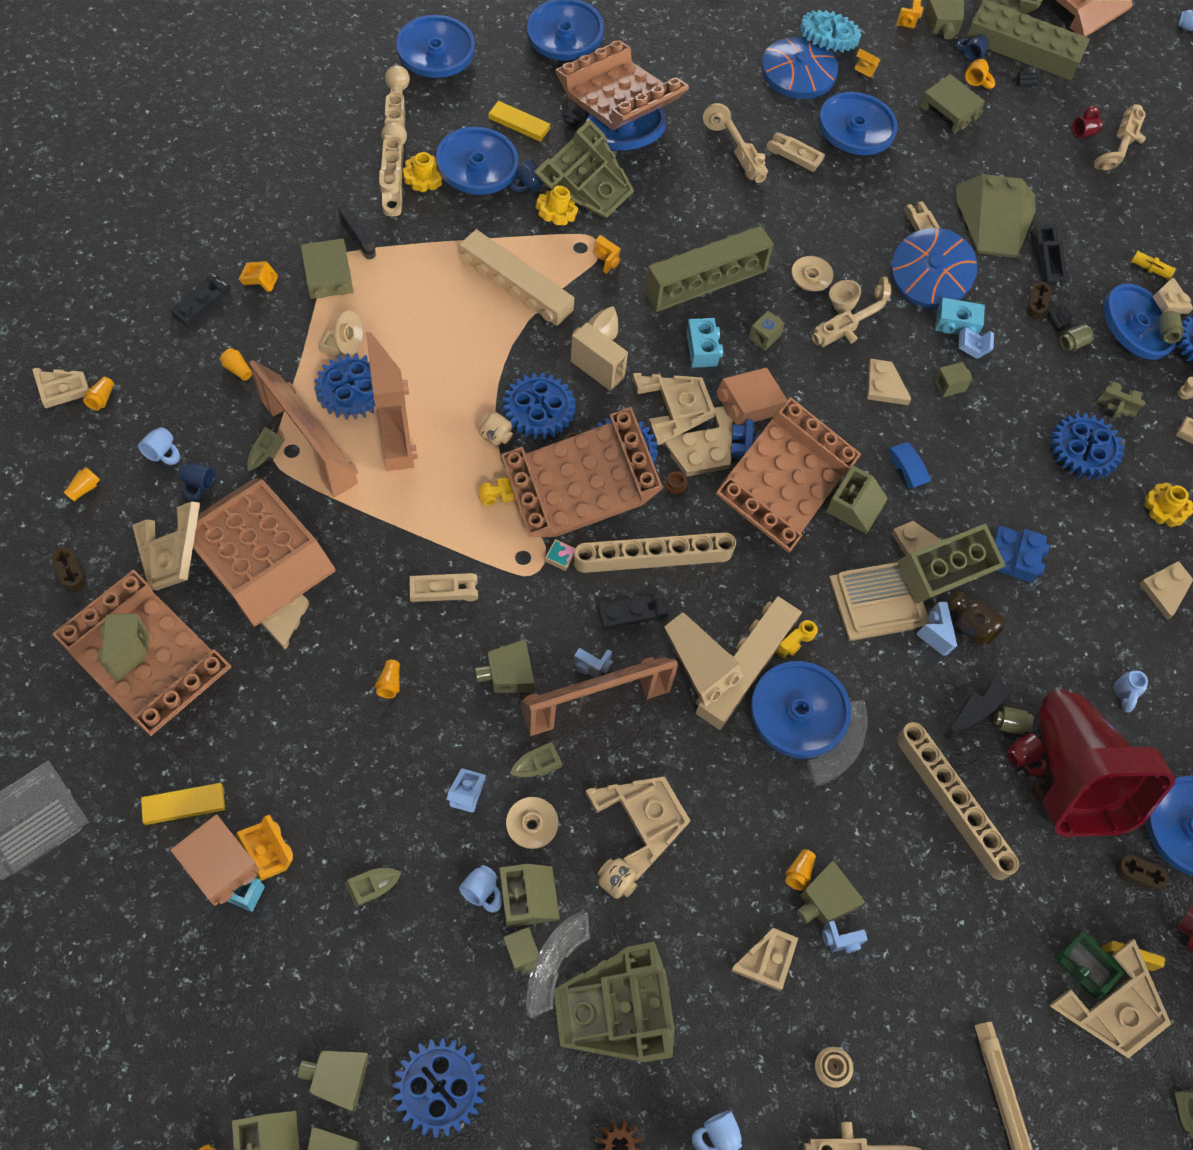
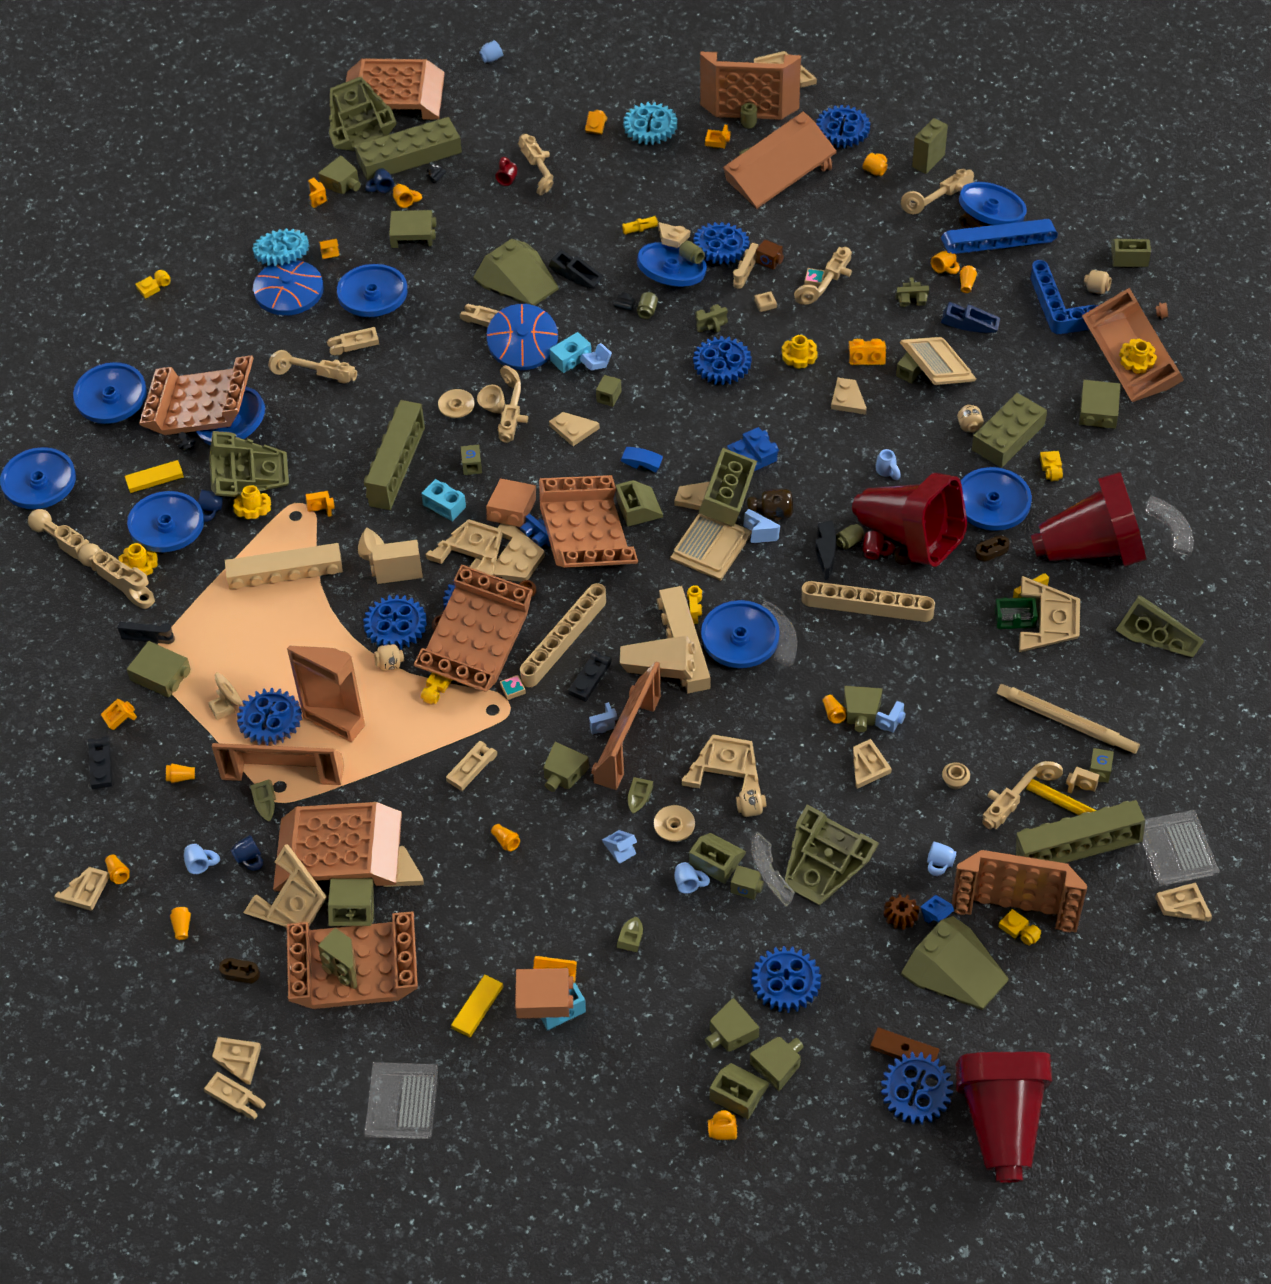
camera: 40 degrees left, 10 degrees down
(200, 605) = (351, 902): none -> olive slope
(1042, 301) = (603, 300): dark brown beam -> none

